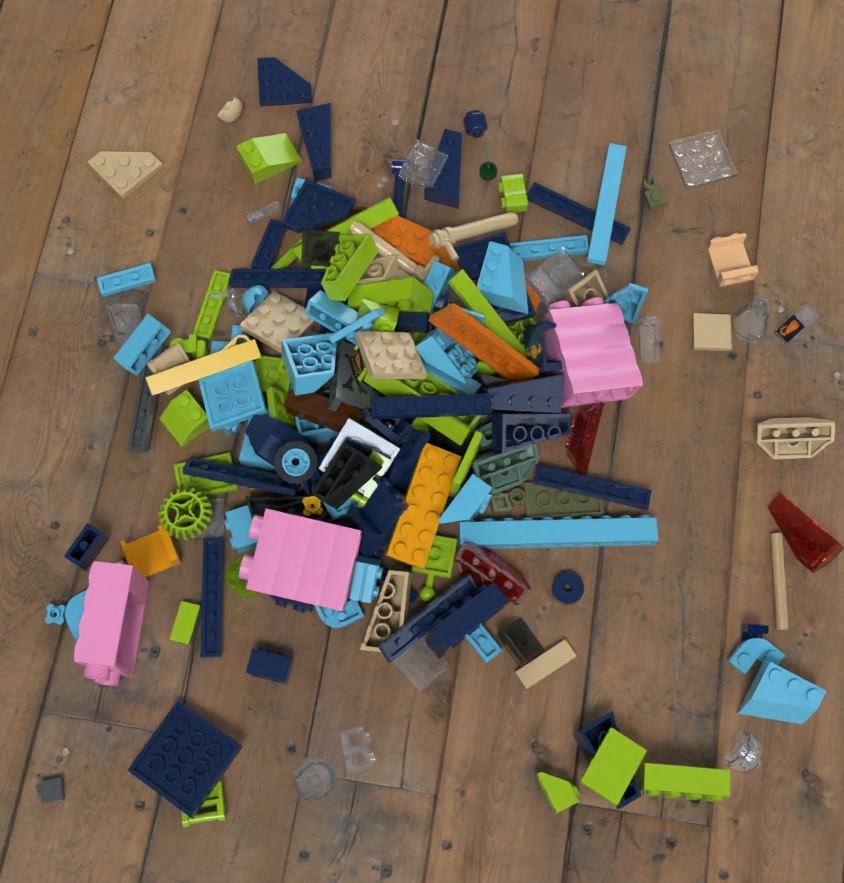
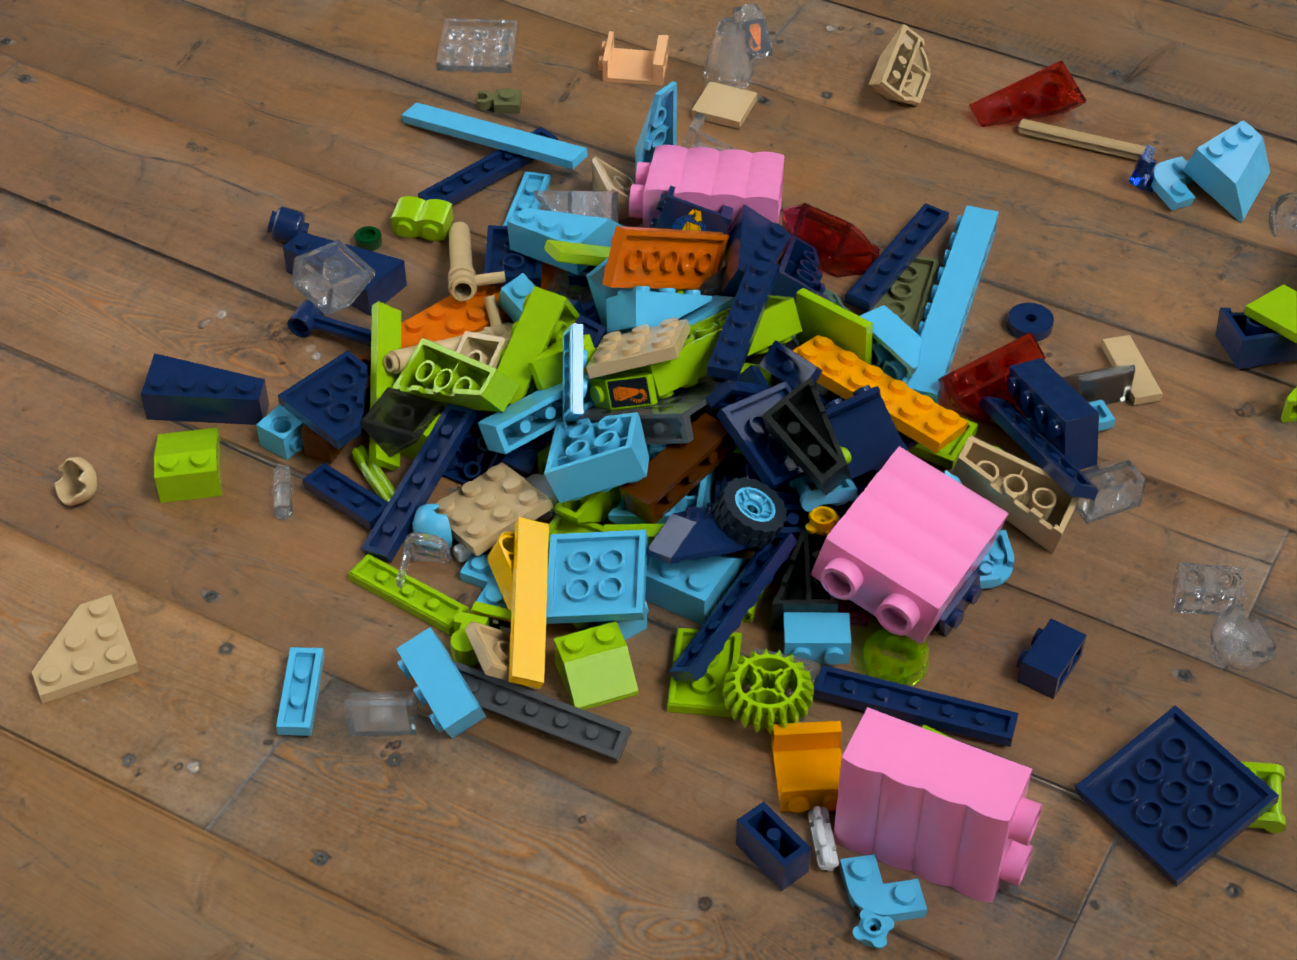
camera: 70 degrees left, 25 degrees down
(280, 84) = (66, 421): dark blue plate -> none

